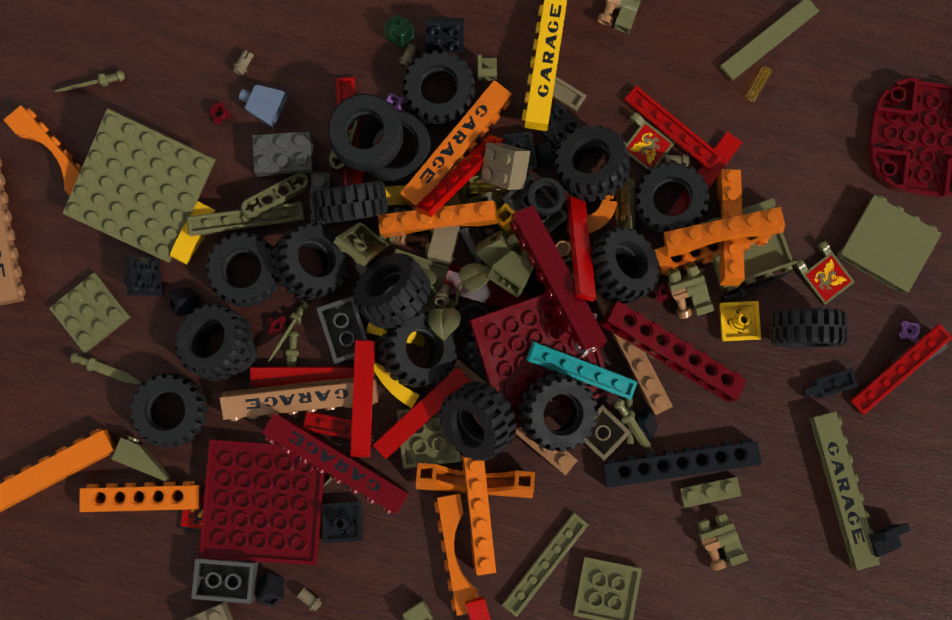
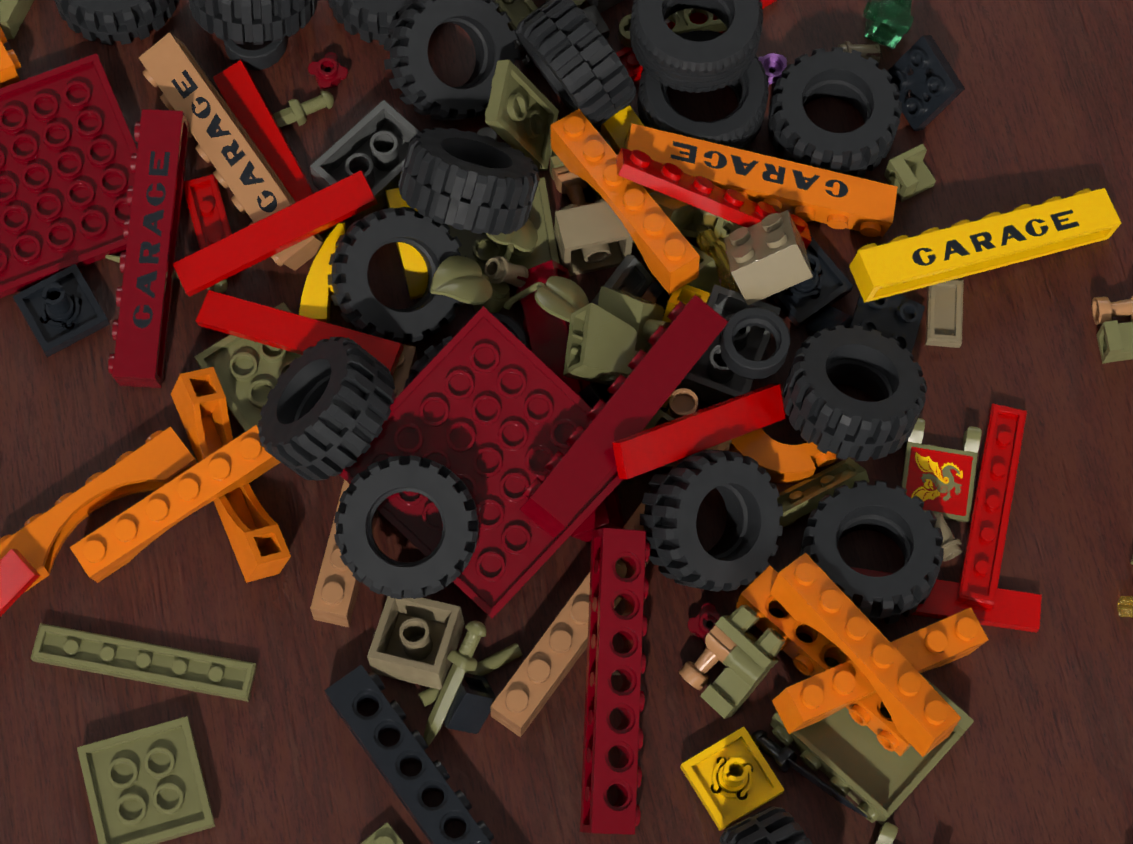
camera: 55 degrees right, 15 degrees down
(295, 318) = (354, 91): olive sword -> none
(581, 370) = (499, 542): teal tile -> none

